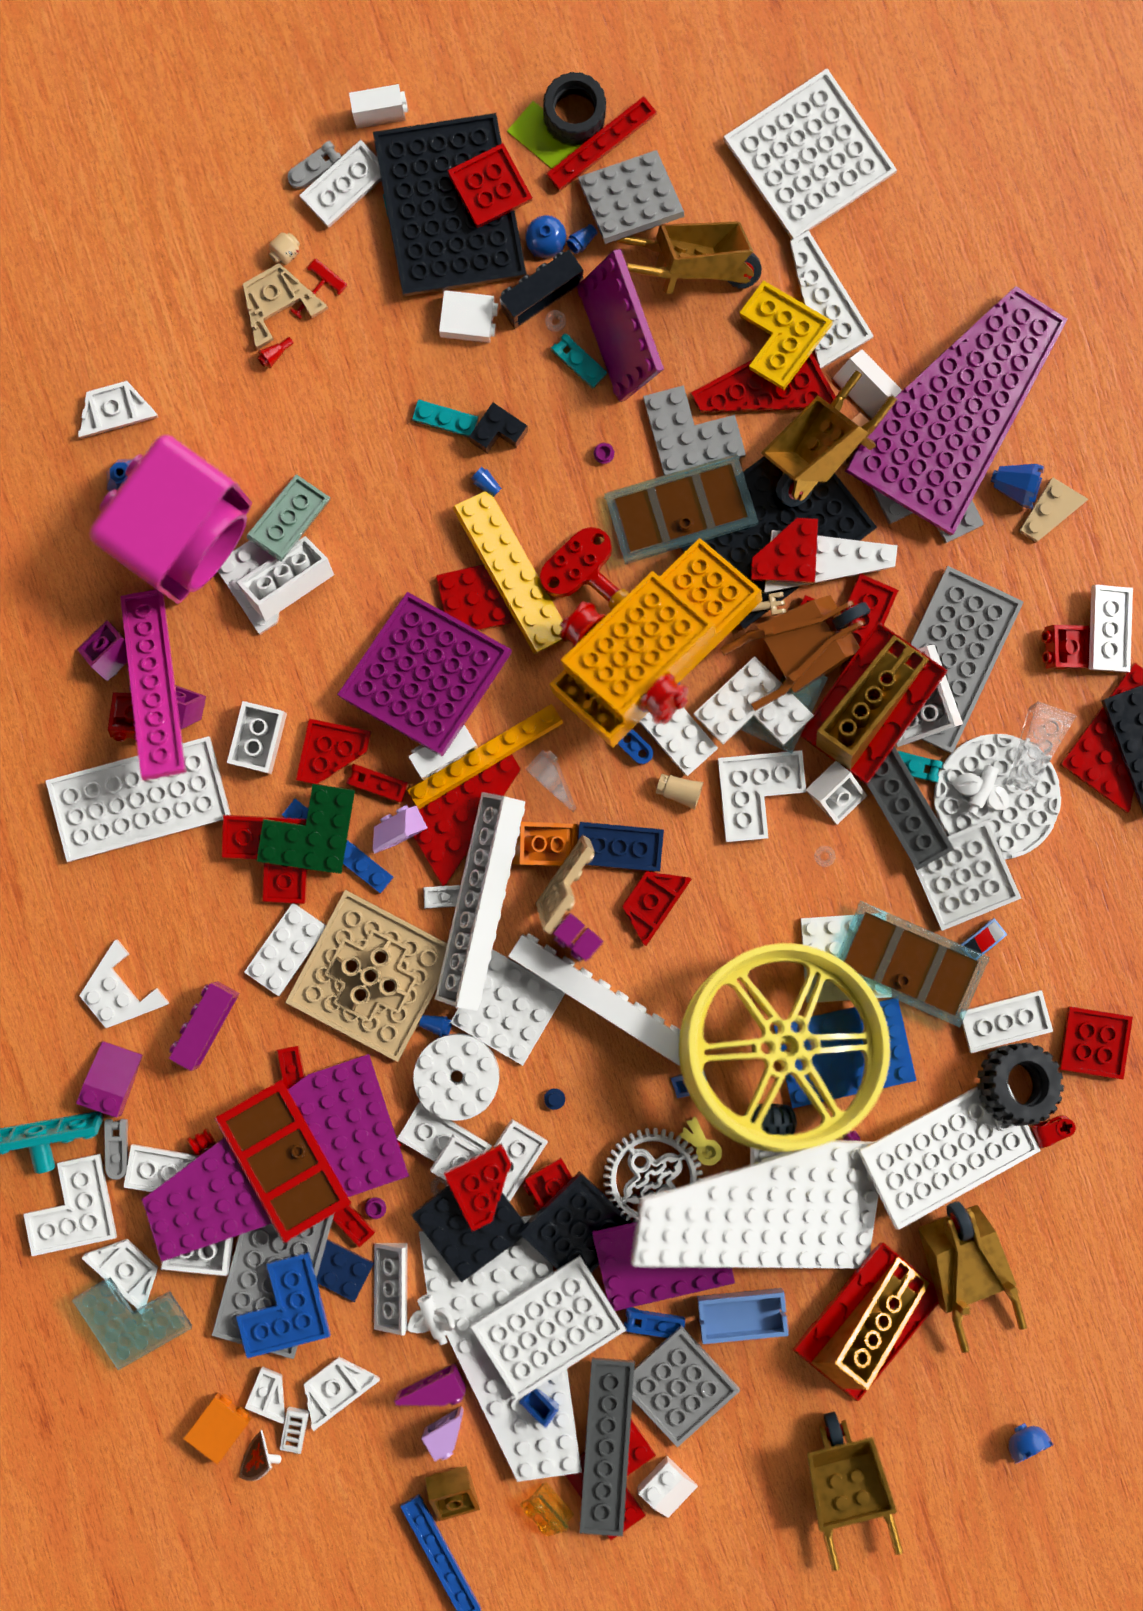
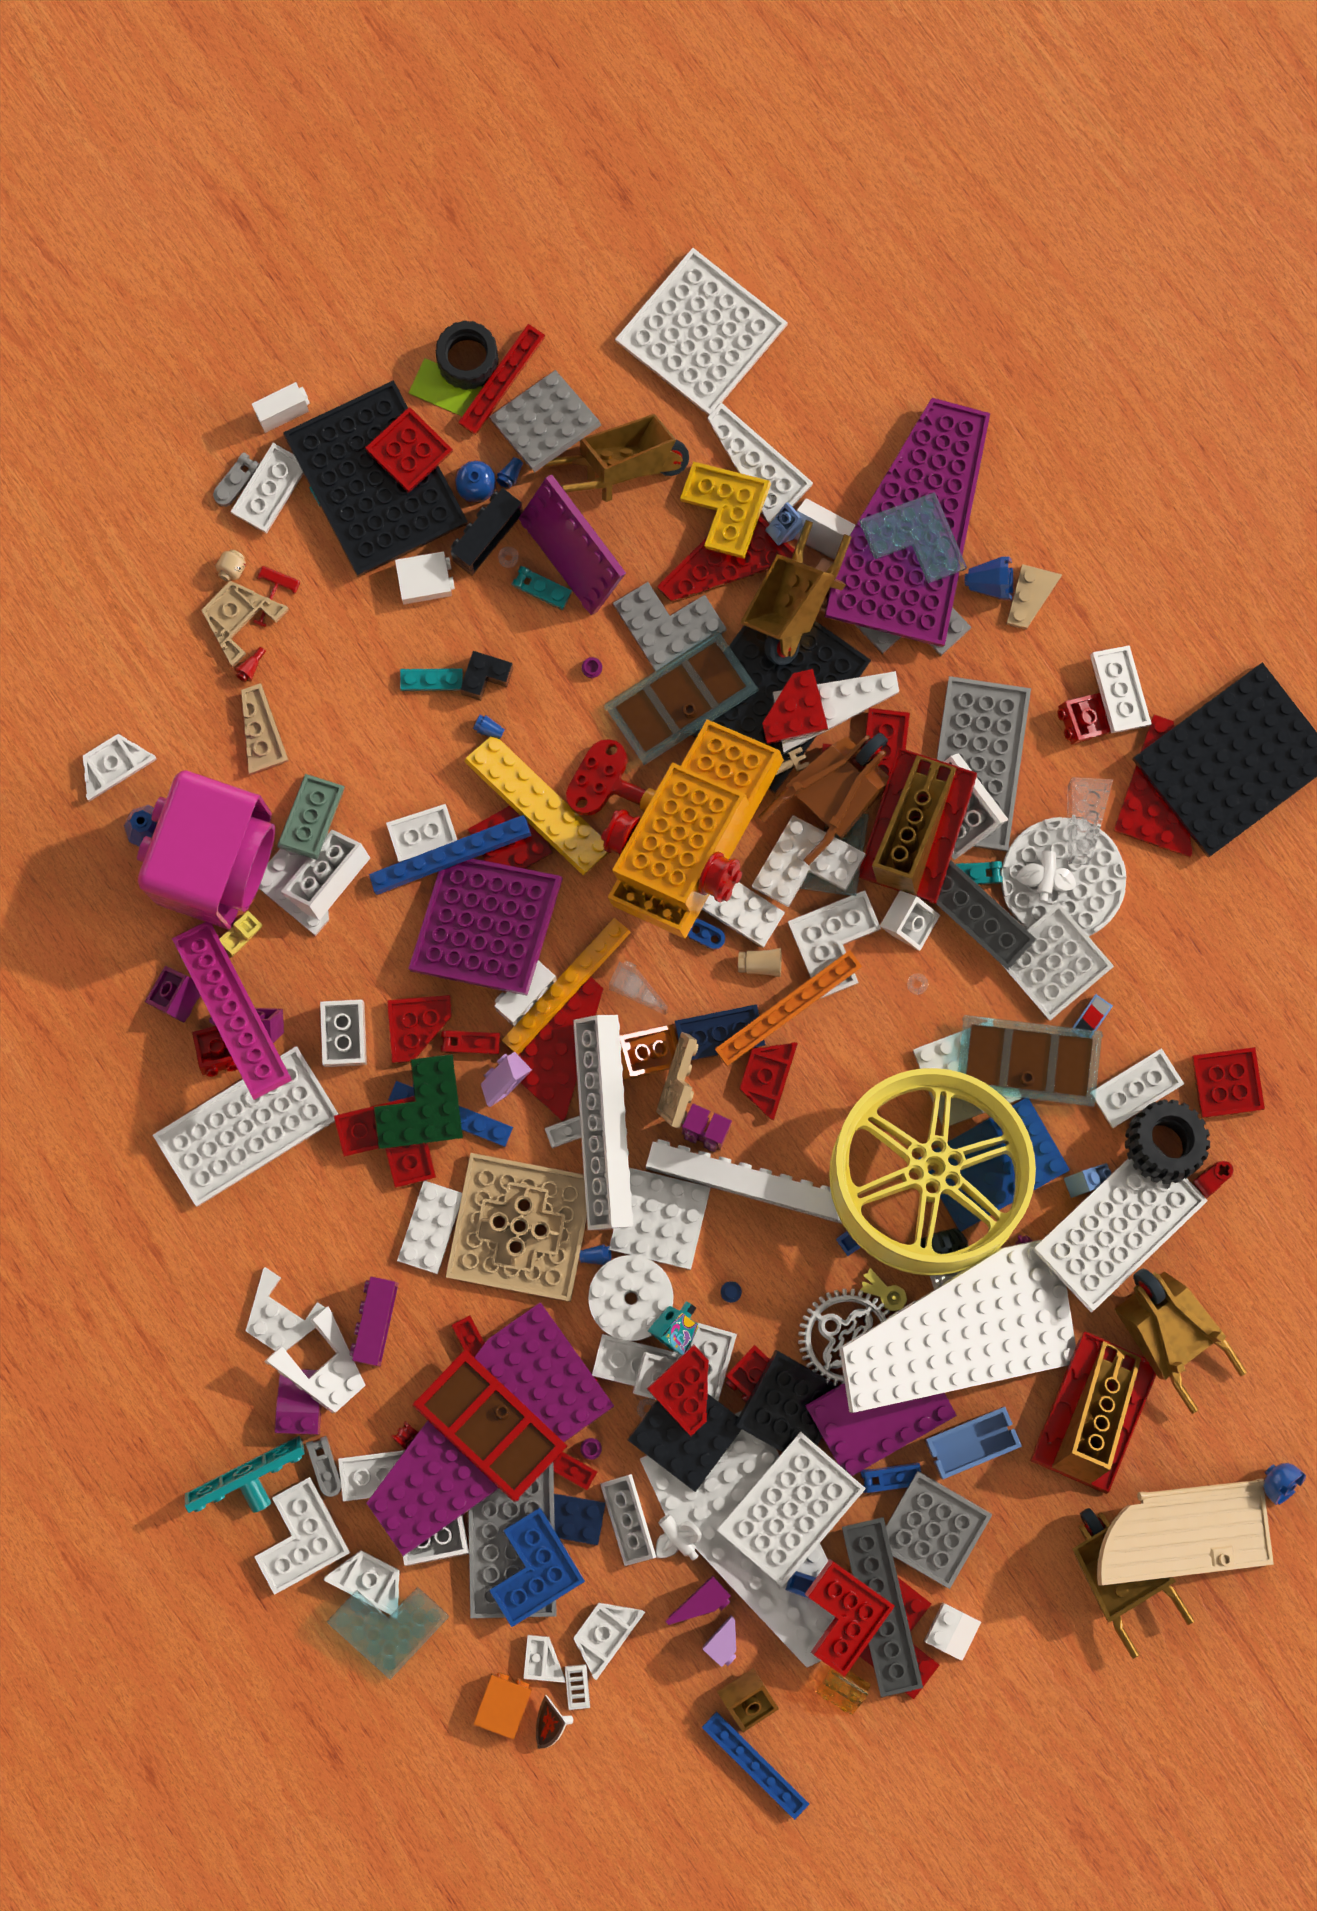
camera: 15 degrees left, 5 degrees down
(149, 1070) = (336, 1380): none -> white wing
(187, 611) = (240, 933): none -> light yellow slope
(265, 426) = (261, 733): none -> tan wing
(391, 566) = (421, 832): none -> white plate
(411, 595) = (450, 854): none -> blue plate
(490, 1120) = (675, 1328): none -> teal torso
(579, 1451) = (857, 1615): none -> red plate
(693, 843) = (788, 1008): none -> orange plate
(834, 369) = (785, 525): none -> medium blue slope
(921, 1470) = (1187, 1533): none -> tan door
(930, 1096) = (1087, 1180): none -> medium blue slope
(967, 410) = (918, 525): none -> clear light blue plate

